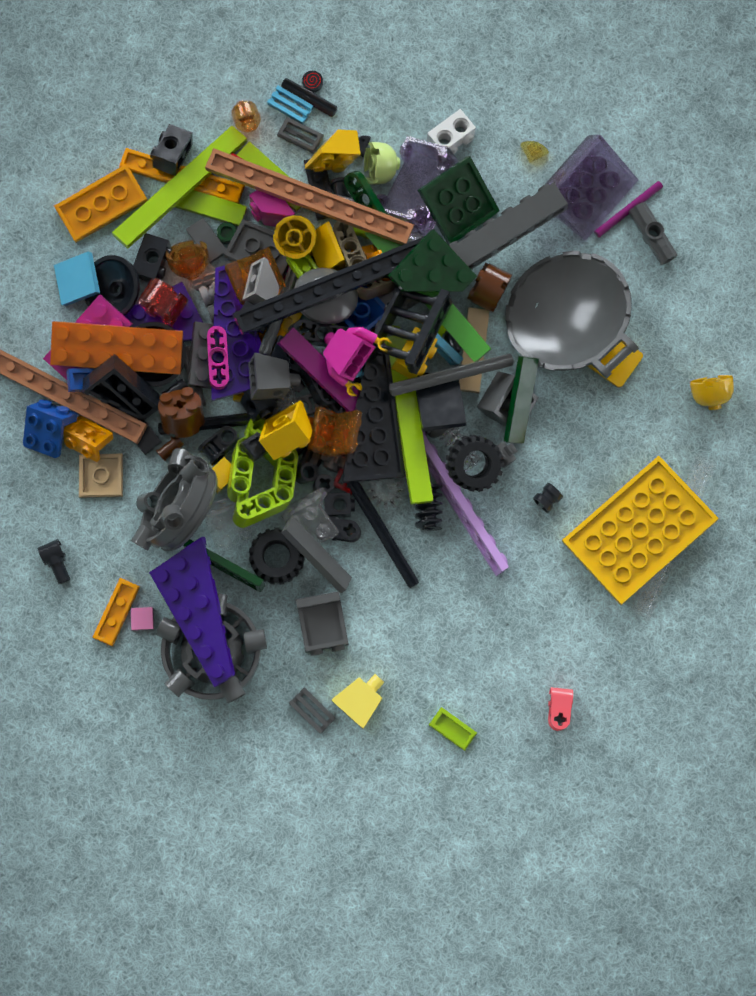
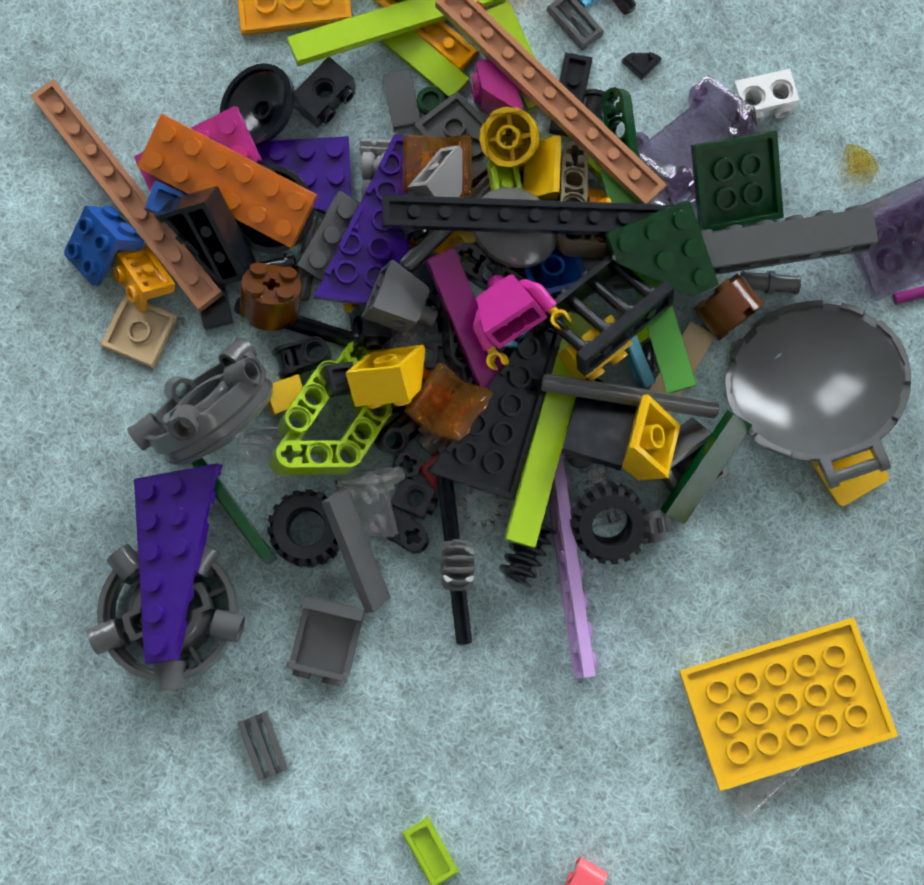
camera: 25 degrees right, 0 degrees up
(54, 557) = (33, 403): black pin -> none
(76, 279) = (221, 78): medium azure tile -> none
(116, 612) = (78, 509): light orange tile -> none
(142, 618) = (106, 532): bright pink tile -> none
(162, 301) = (309, 148): clear red brick -> none
(166, 450) = (244, 331): reddish brown pin -> none
(188, 259) = (367, 111): clear orange cylinder -> none
(222, 342) = (360, 230): dark pink beam -> none
(336, 152) = (609, 56): yellow slope -> none
(360, 699) = (328, 761): light yellow torso -> none
(381, 163) = (660, 94): yellowish green cylinder -> none
(387, 534) = (457, 565): none -> dark grey gear
(478, 398) = (651, 441): none -> yellow slope
(510, 258) = (772, 282): none -> dark grey pin
(548, 497) = (686, 607): black wheel -> none

